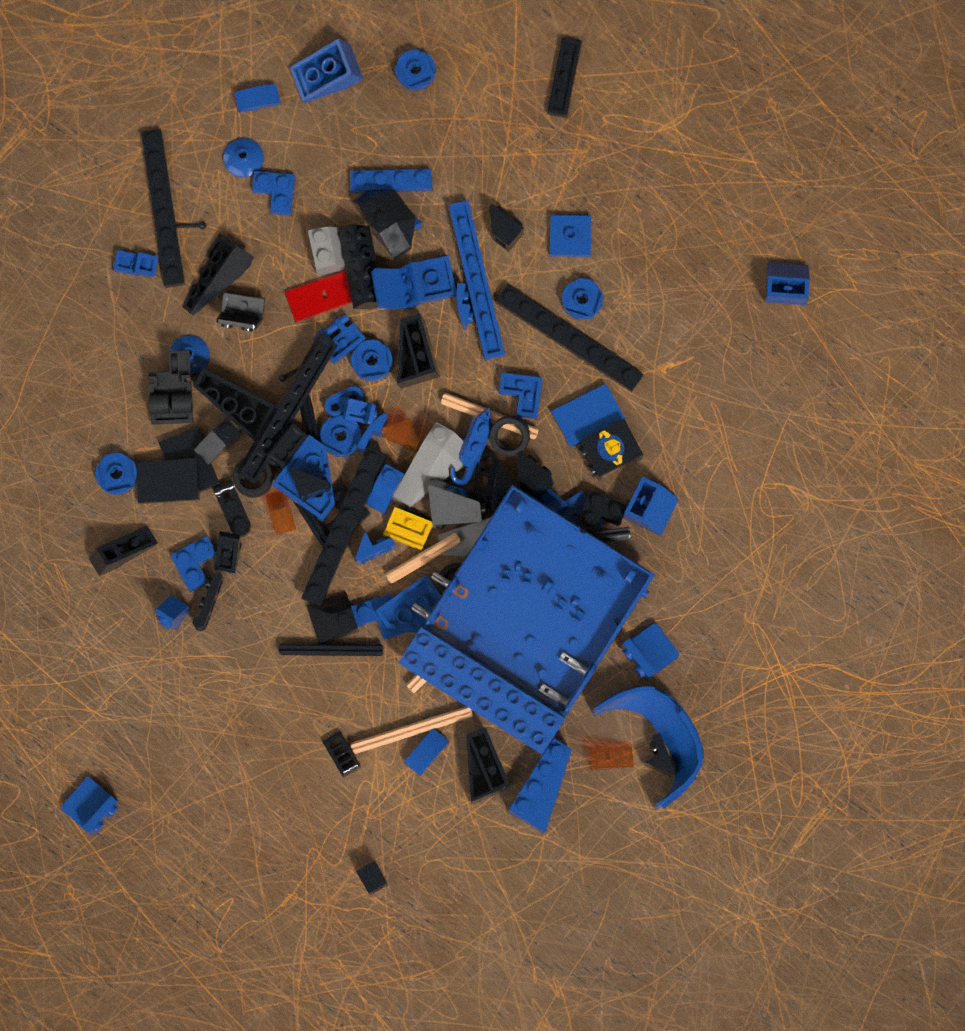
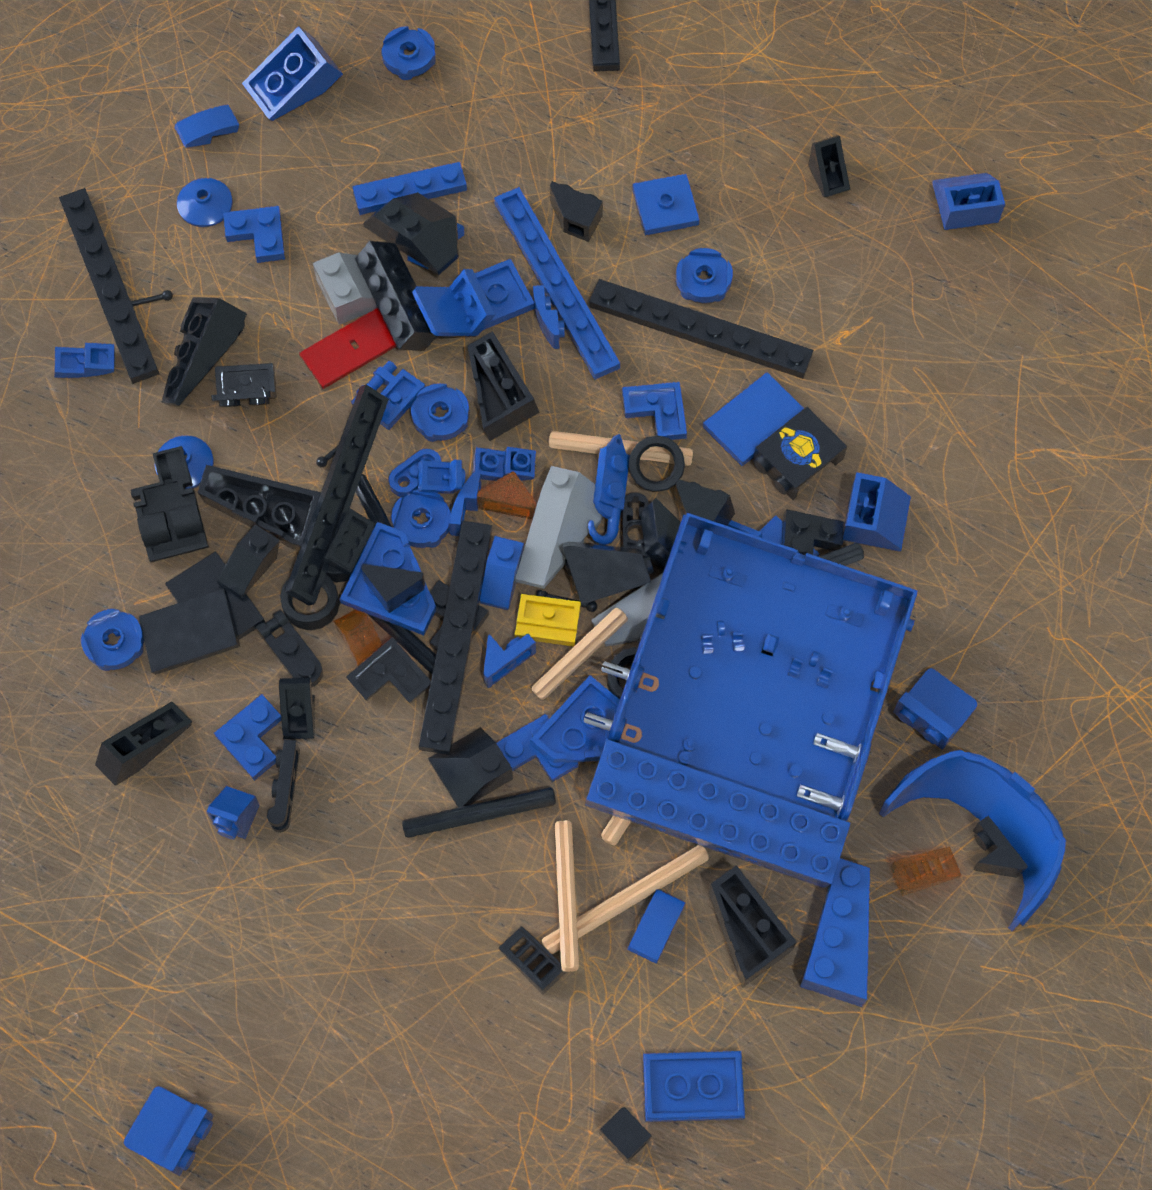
camera: 15 degrees left, 10 degrees down
(295, 536) = (391, 665): none -> black plate
(373, 718) = (566, 896): none -> light nougat axle
(406, 409) = (497, 464): none -> blue slope
(423, 858) = (693, 1086): none -> blue tile
(695, 236) = (829, 166): none -> black slope

